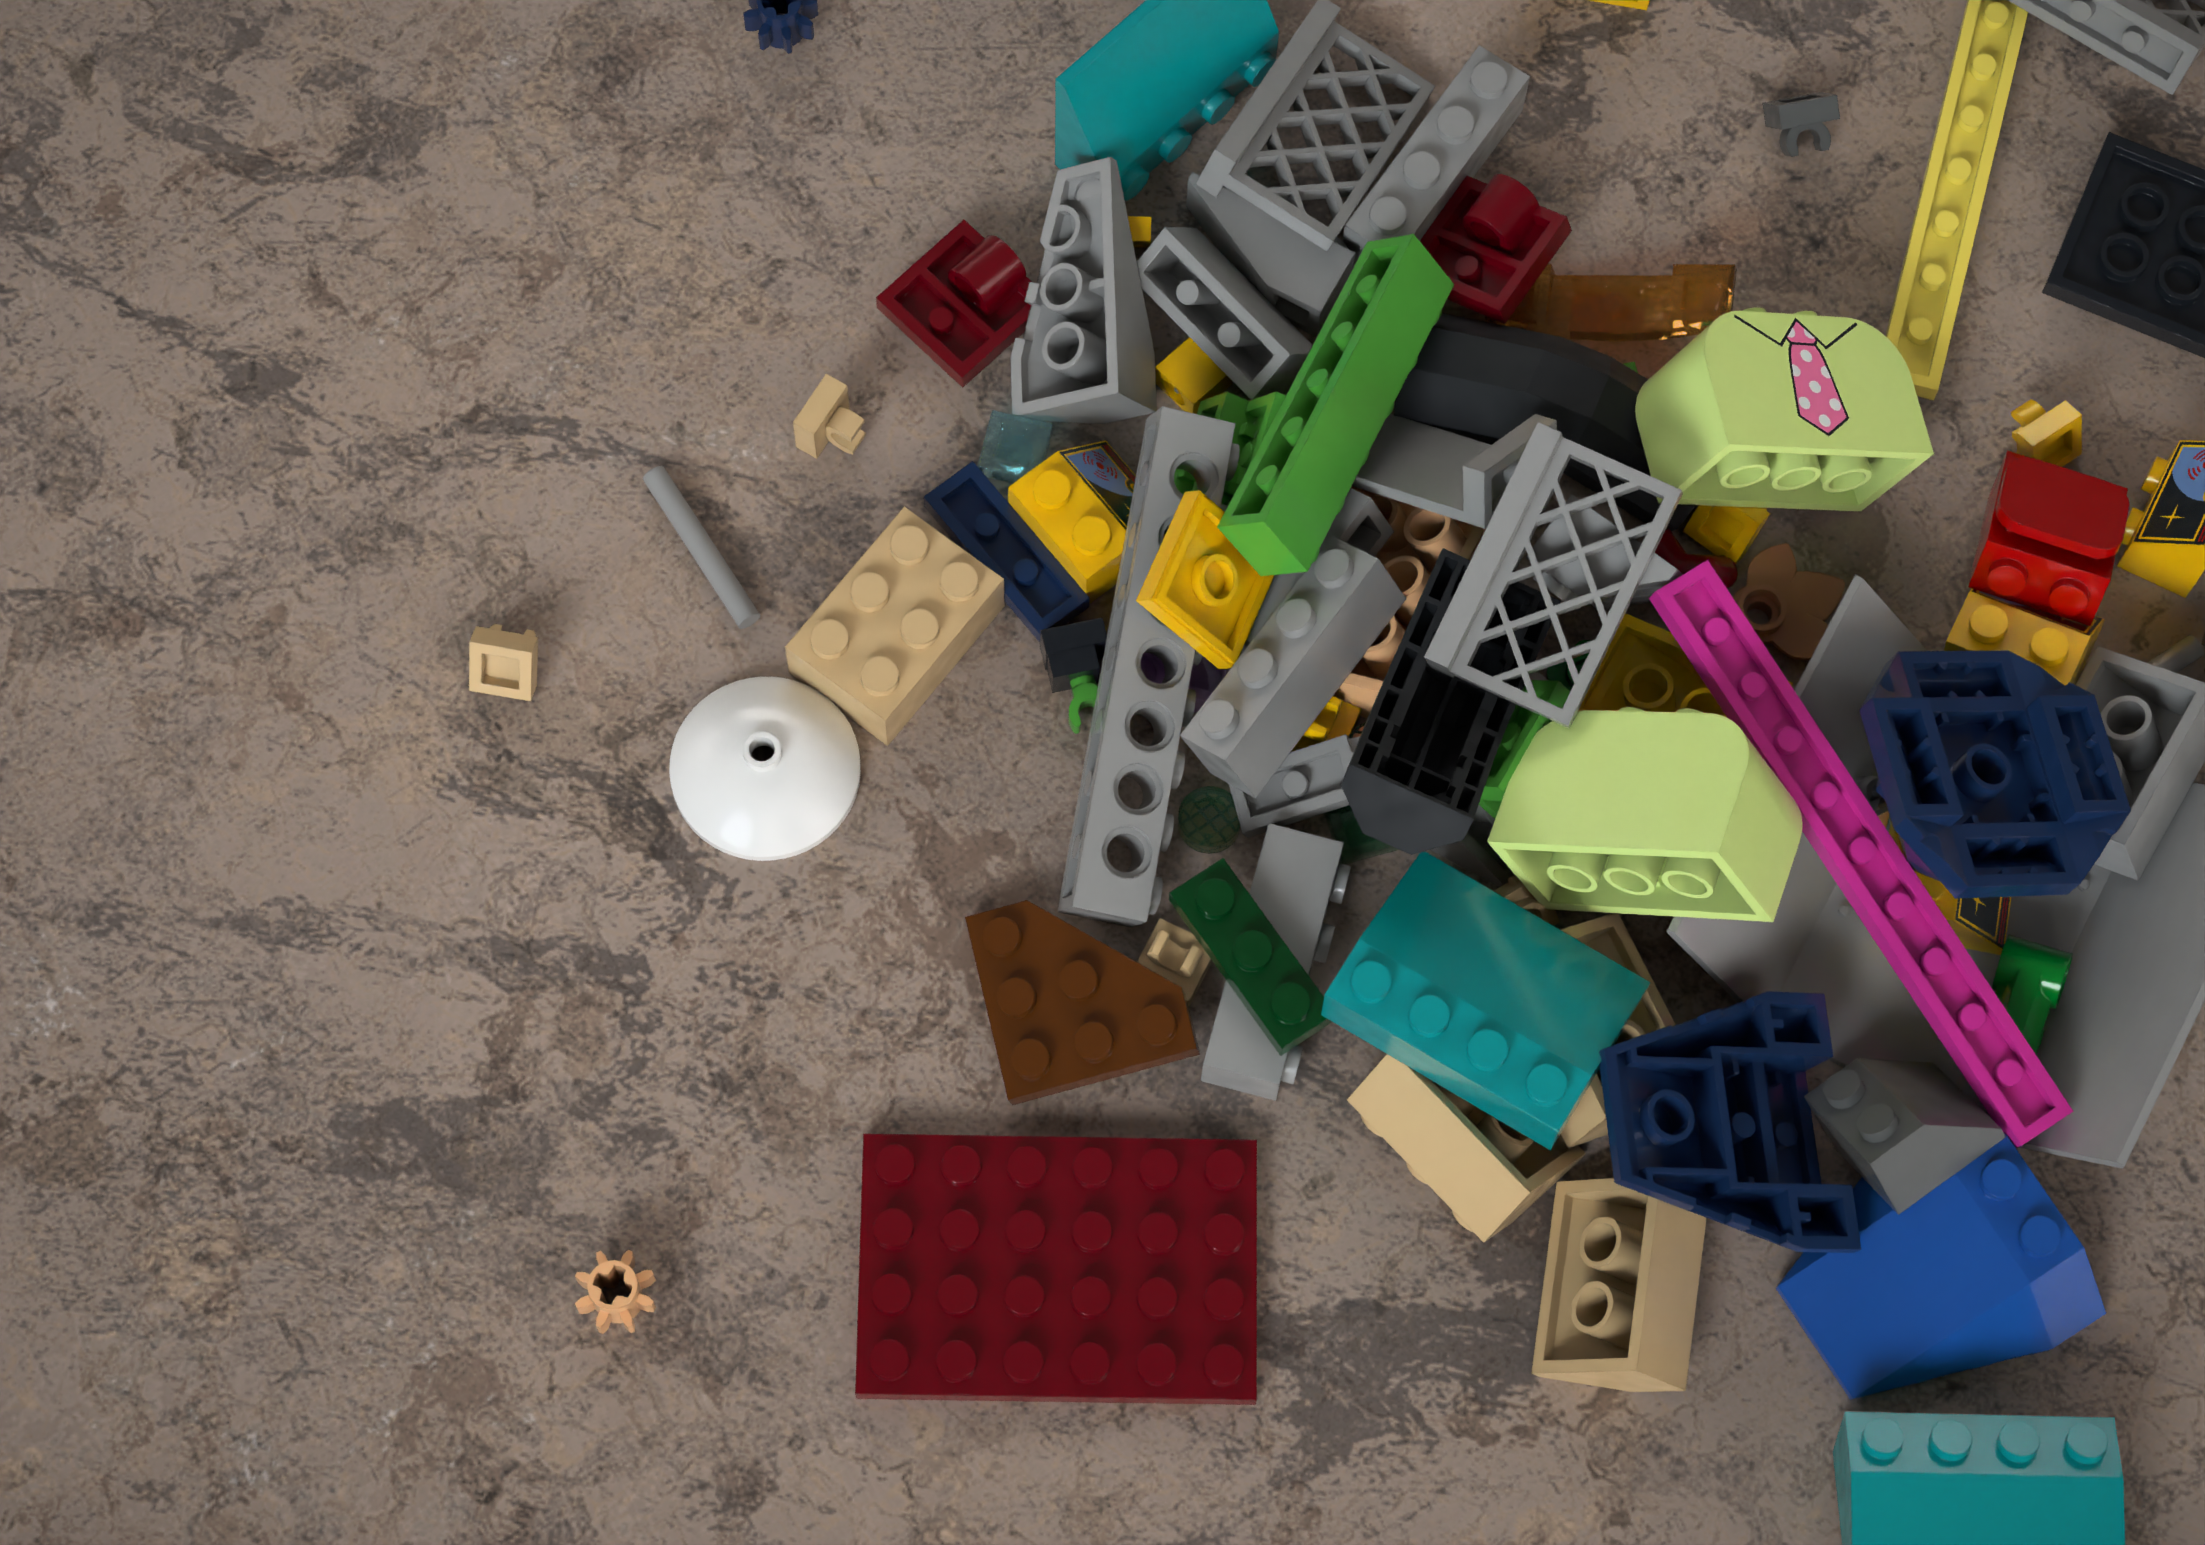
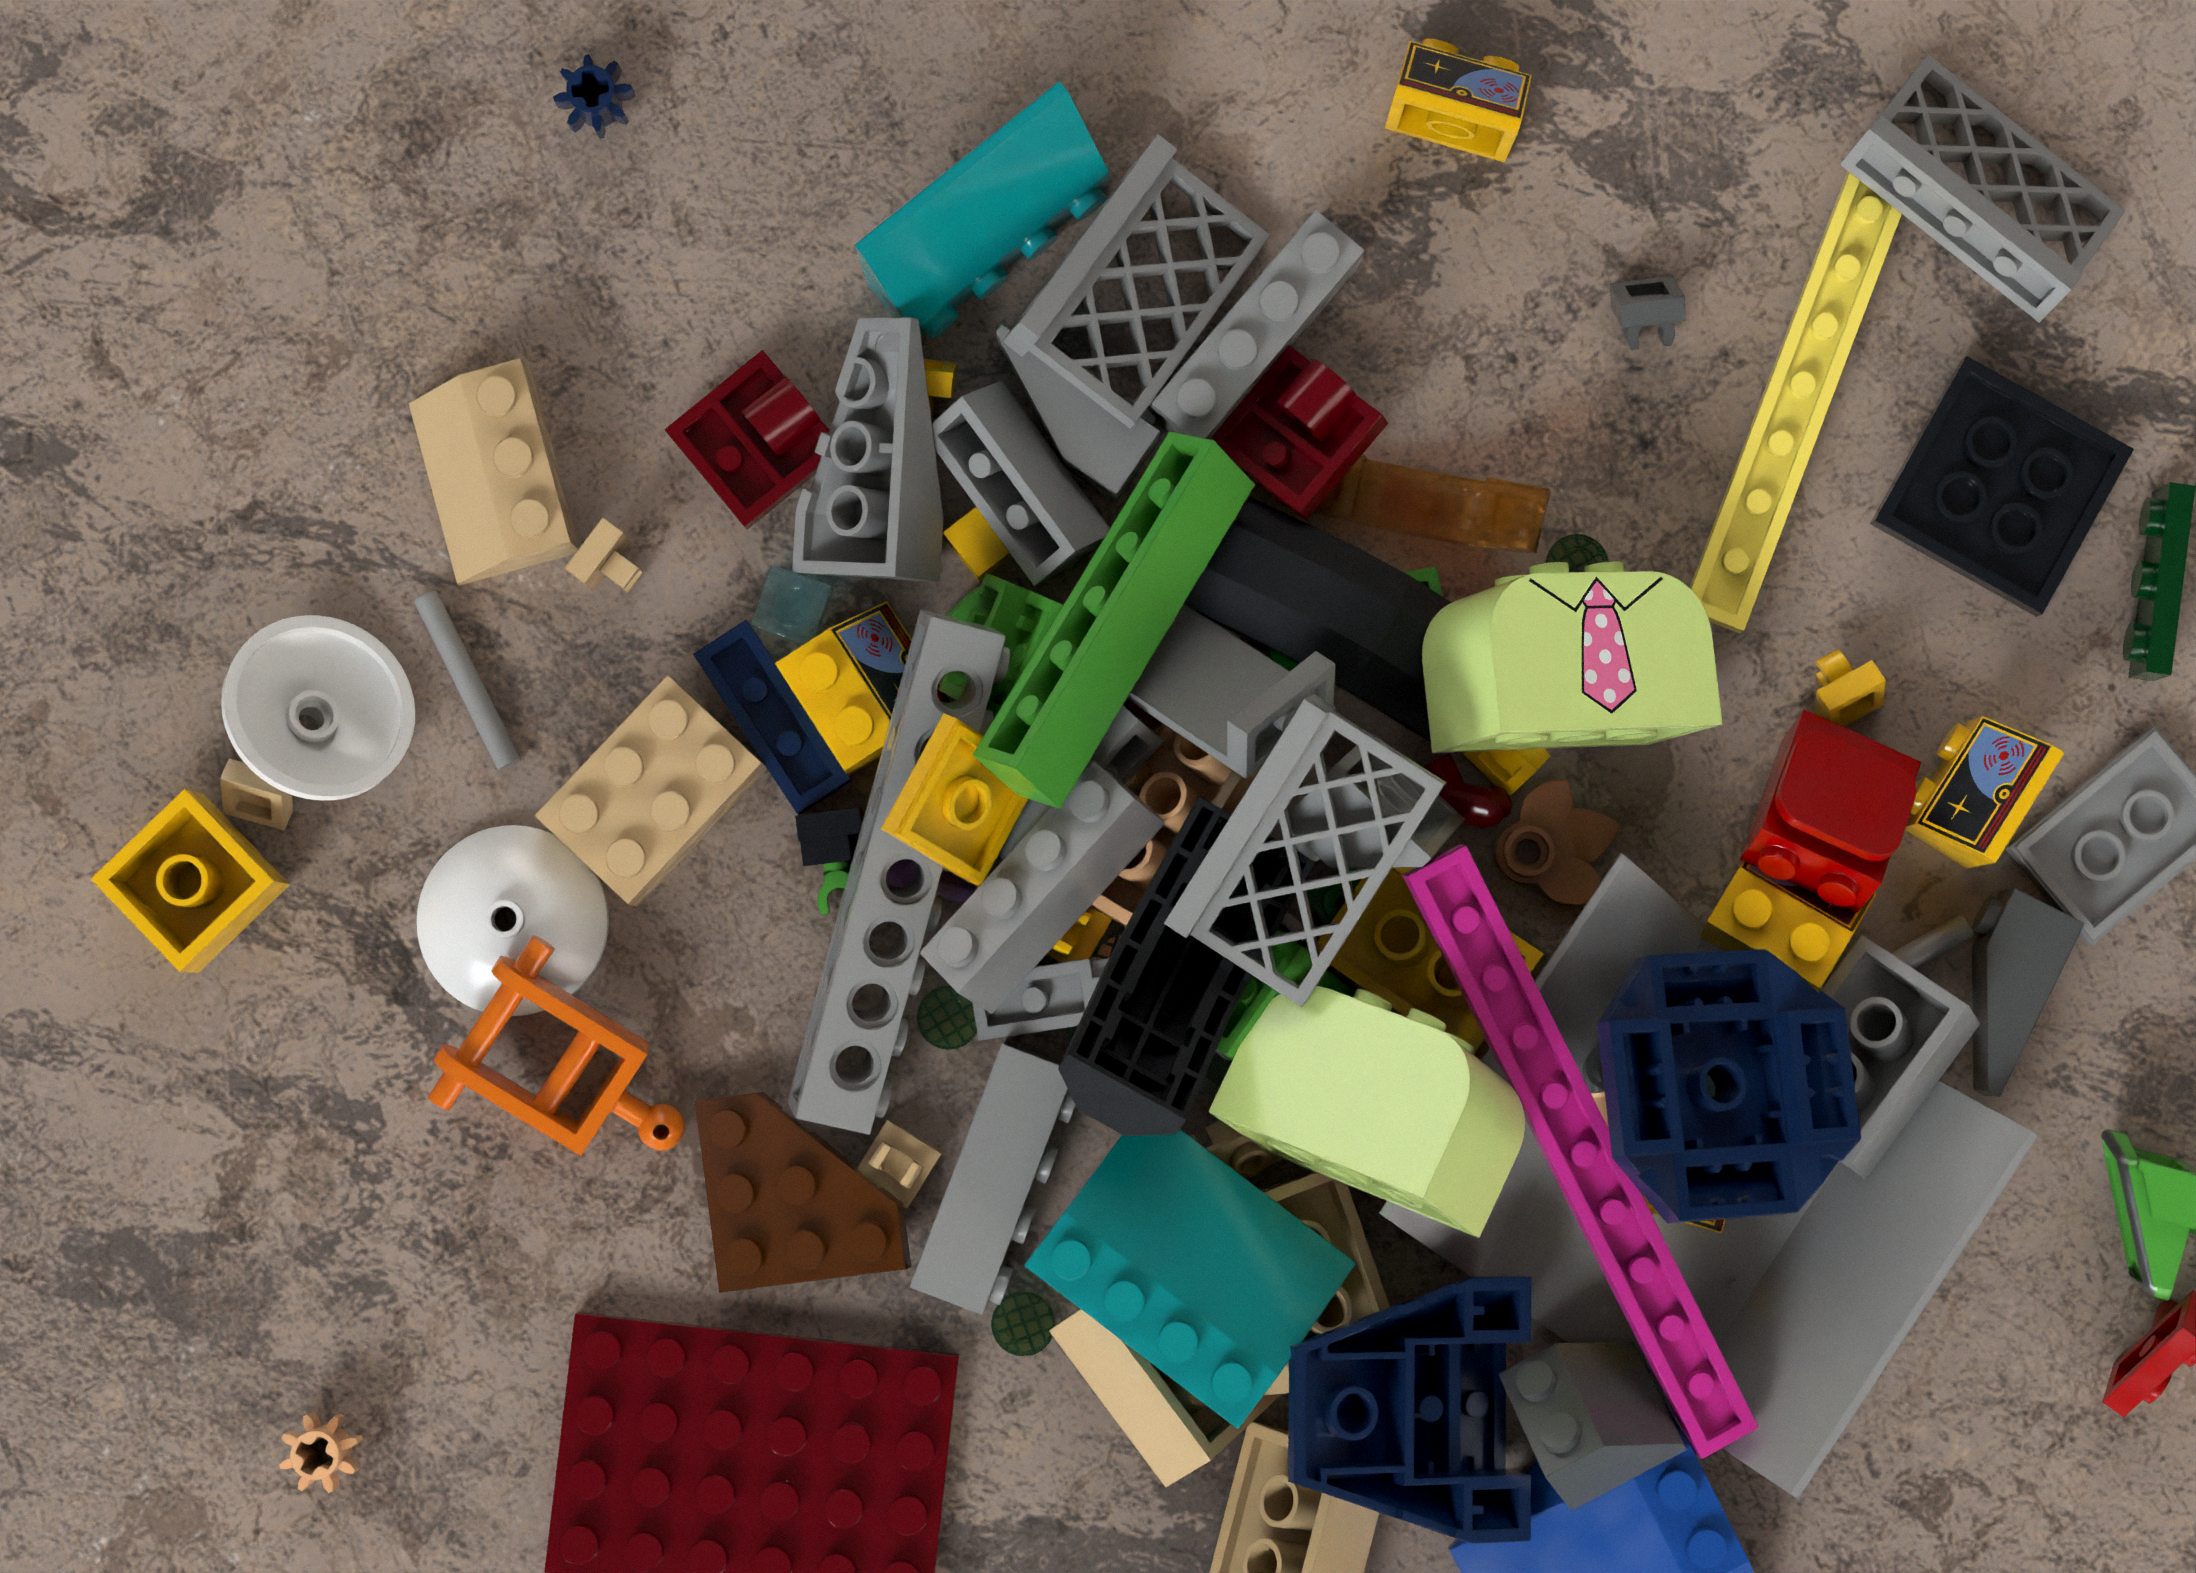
camera: 10 degrees right, 15 degrees up
(445, 744) = (190, 881): none -> yellow brick
(561, 571) = (339, 680): none -> white dish
(712, 351) = (493, 472): none -> tan slope
(786, 802) = (522, 979): none -> orange piece
(1251, 955) = (967, 1184): dark green plate -> none
(1317, 1106) = (1023, 1323): none -> clear green tile
(2030, 984) = (1734, 1284): green piece -> none

